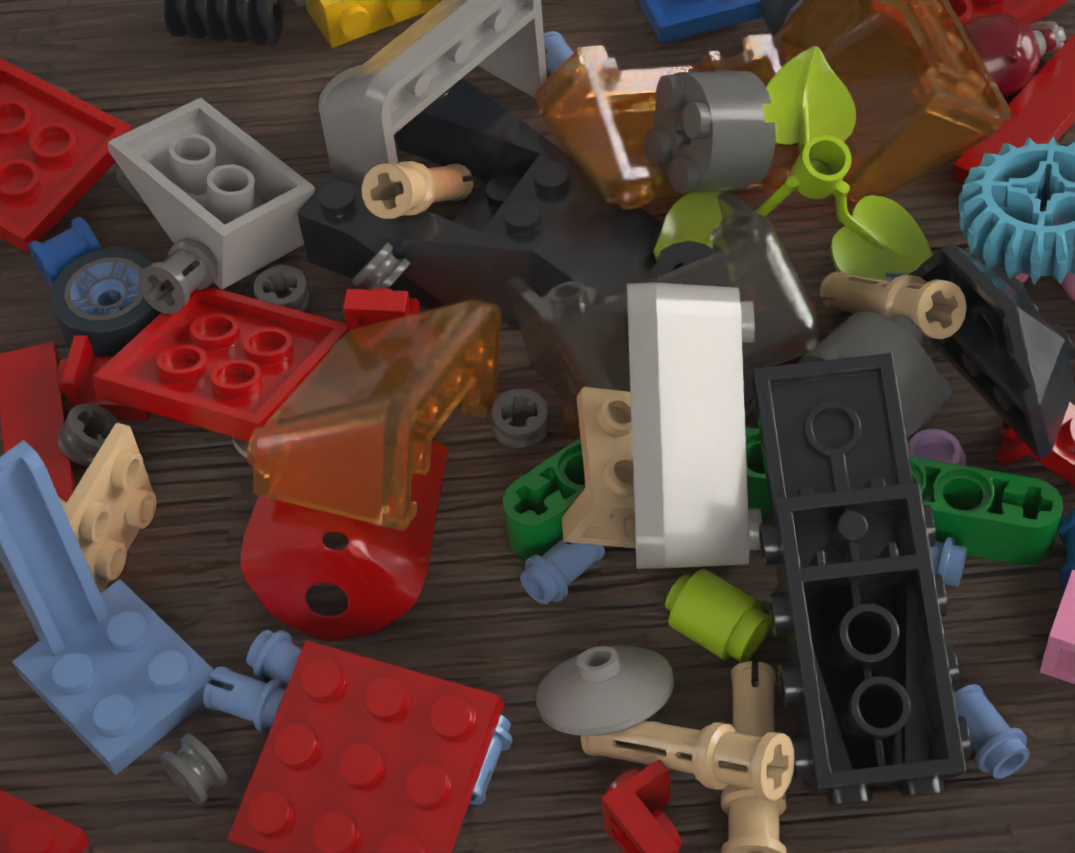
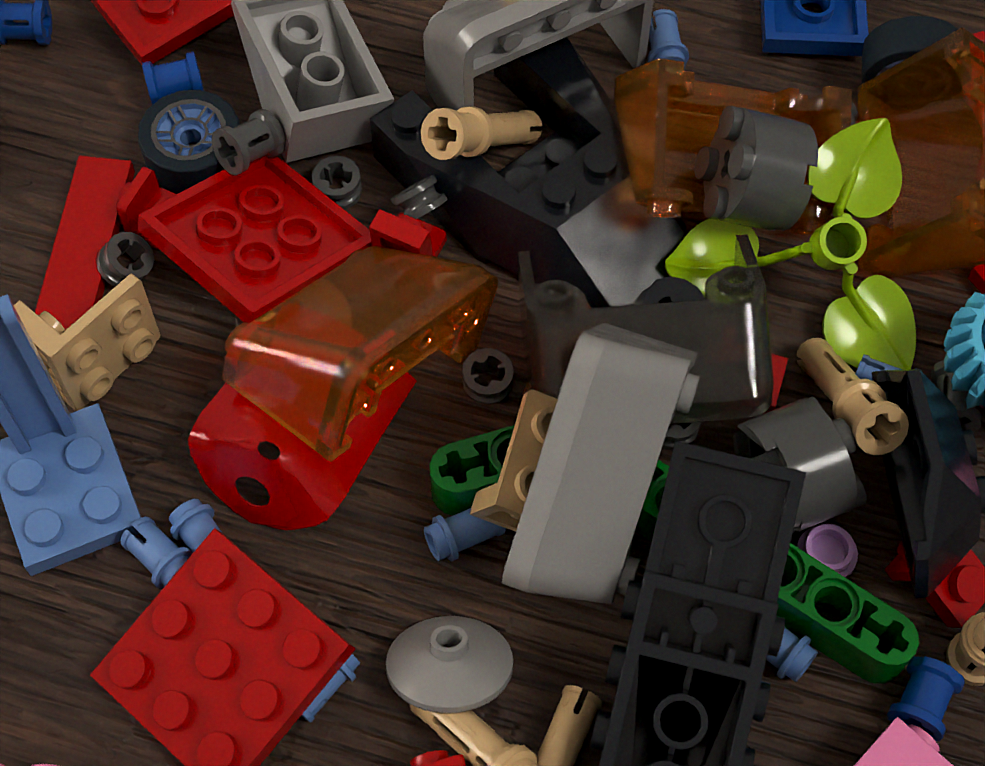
camera: 15 degrees right, 10 degrees up
(194, 769) = (87, 601): dark grey bush -> none
(717, 615) = (573, 634): lime brick -> none

